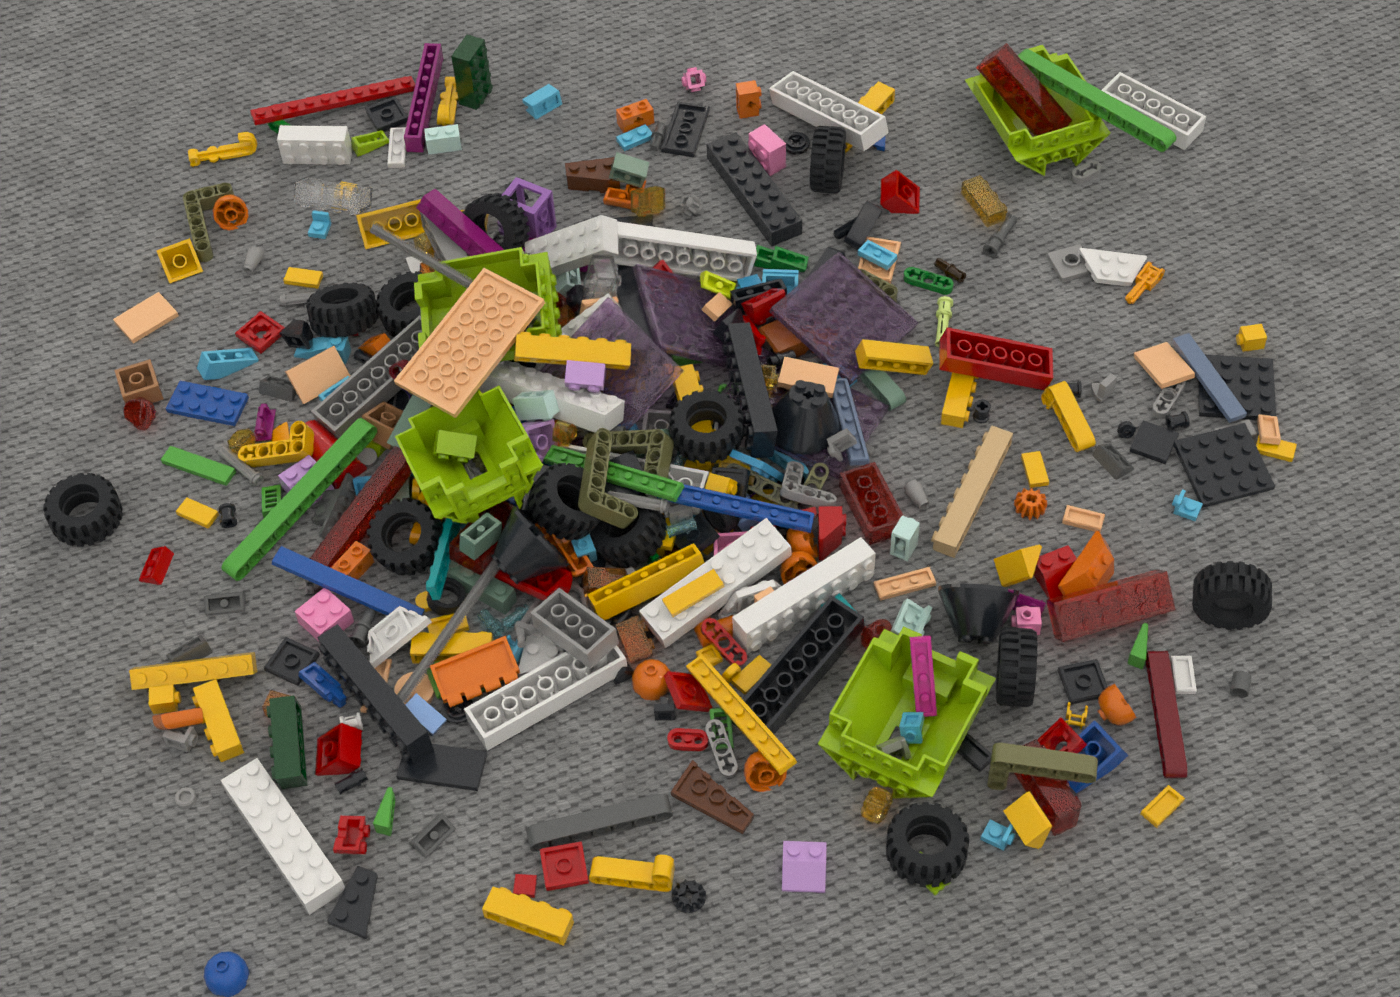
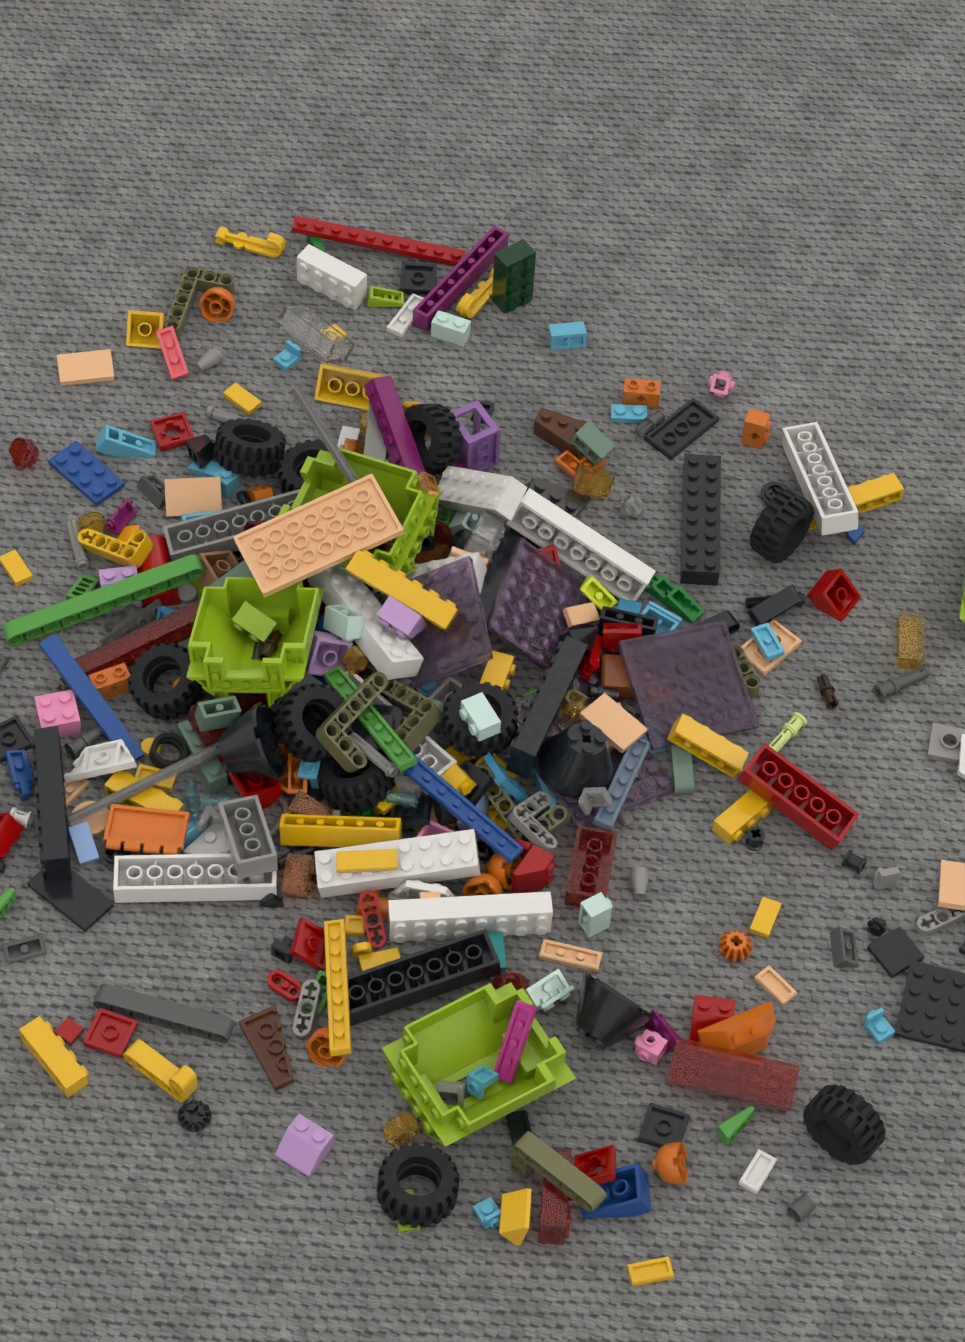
camera: 25 degrees right, 0 degrees up
(139, 381) = (40, 425): medium nougat brick -> none
(198, 465) = (43, 526): bright green tile -> none
(218, 268) = (172, 353): none -> coral plate
(227, 515) = (37, 583): black bush -> none
(441, 564) = (176, 721): teal plate -> none
(481, 459) = (270, 645): none -> dark brown axle
(536, 252) = (428, 483): none -> clear orange tile
(649, 679) = (286, 916): orange cylinder -> none
(713, 420) = (480, 717): none -> light aqua brick
(768, 149) = (737, 488): bright pink brick -> none
(917, 273) = (798, 682): green beam -> none
(972, 491) = (691, 906): tan brick -> none
(1016, 667) = (601, 1079): black tyre -> none
(1017, 565) = (677, 992): yellow slope -> none
(1069, 414) = (830, 886): yellow beam -> none
(1069, 714) = (638, 1157): yellow piece -> none
(1166, 714) = (713, 1195): dark red beam -> none
(1177, 421) = (931, 944): black bush -> none

